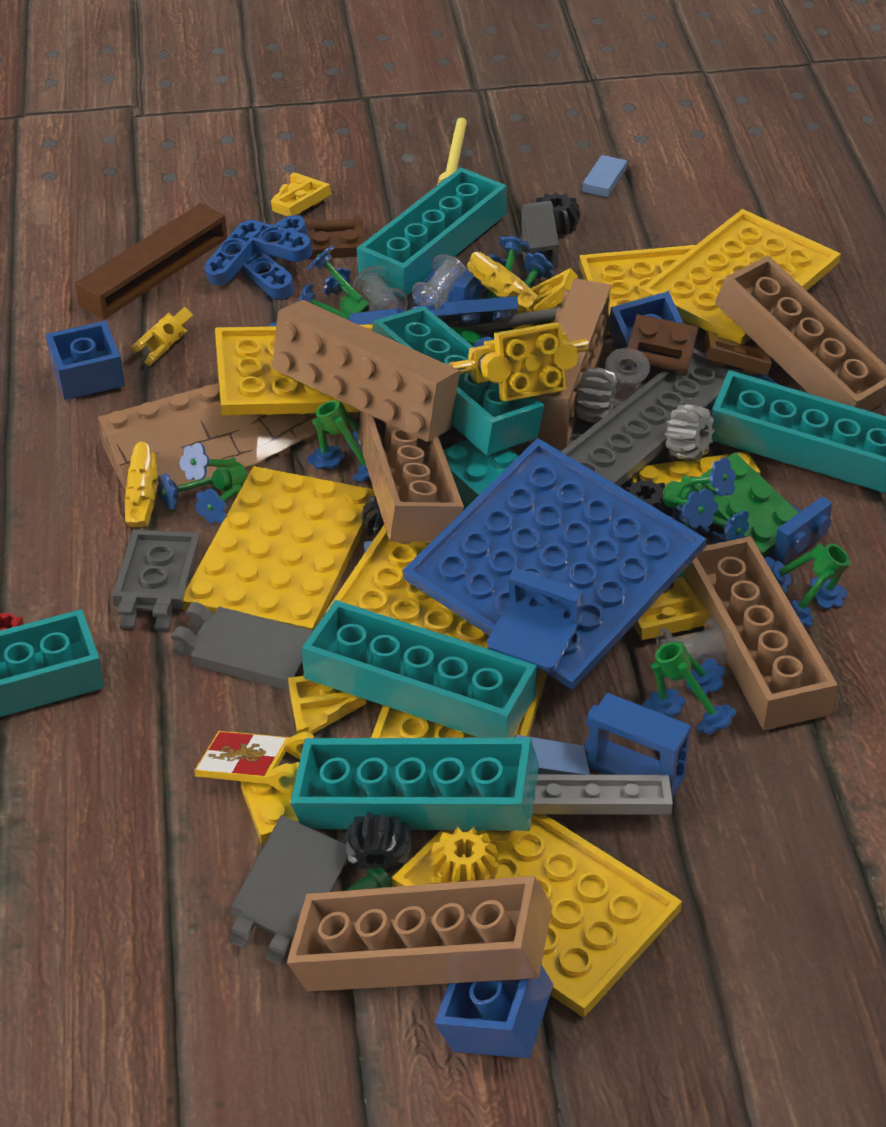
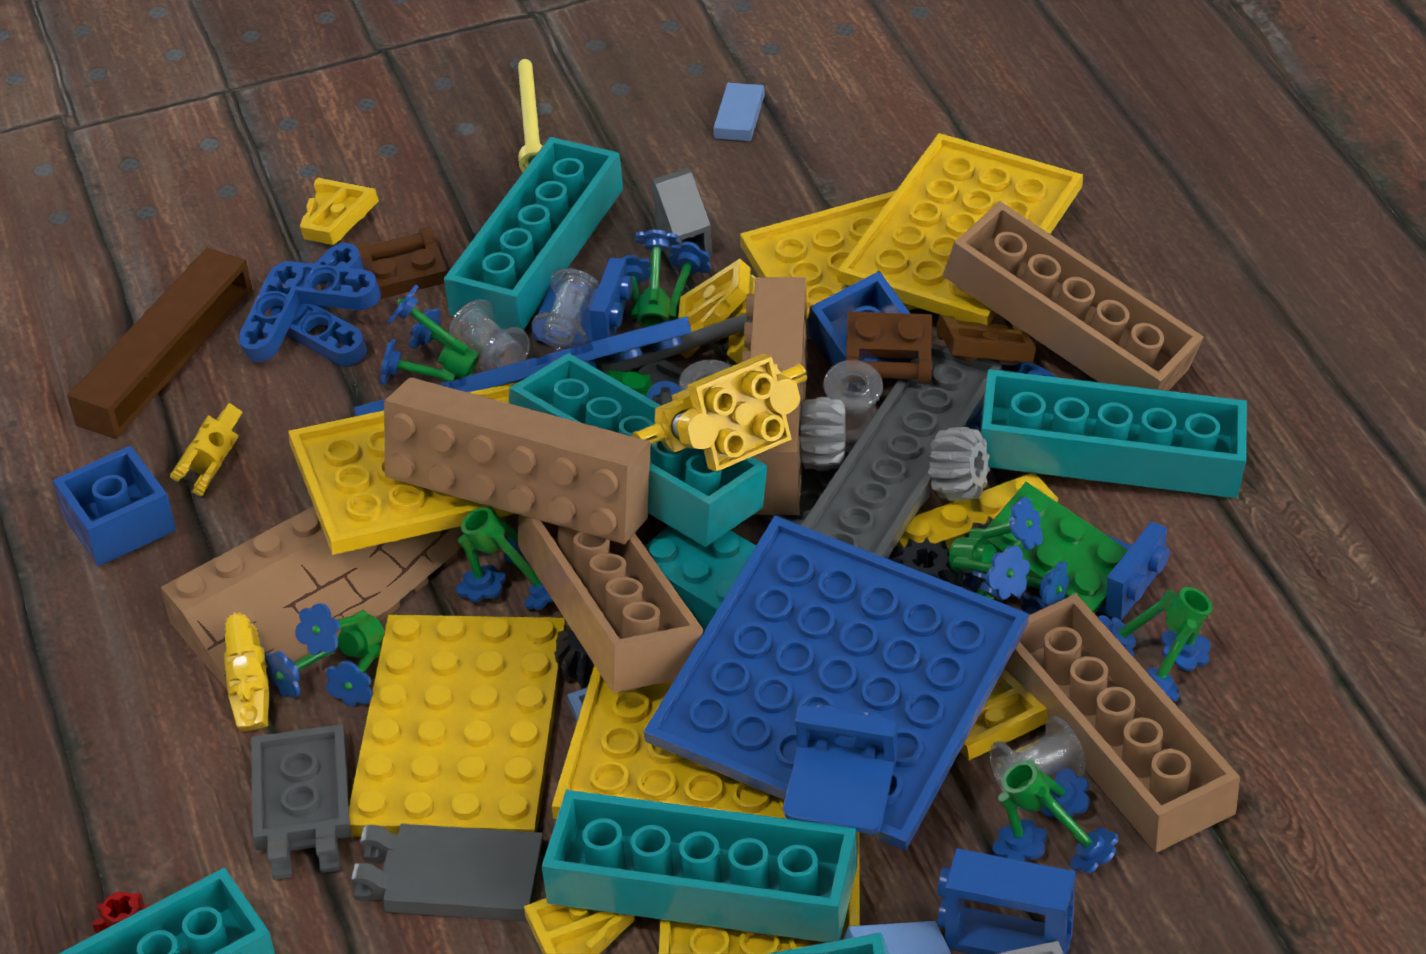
camera: 10 degrees left, 0 degrees up
(500, 280) = (651, 292): yellow hinge -> none
(565, 211) = (705, 170): black gear -> none

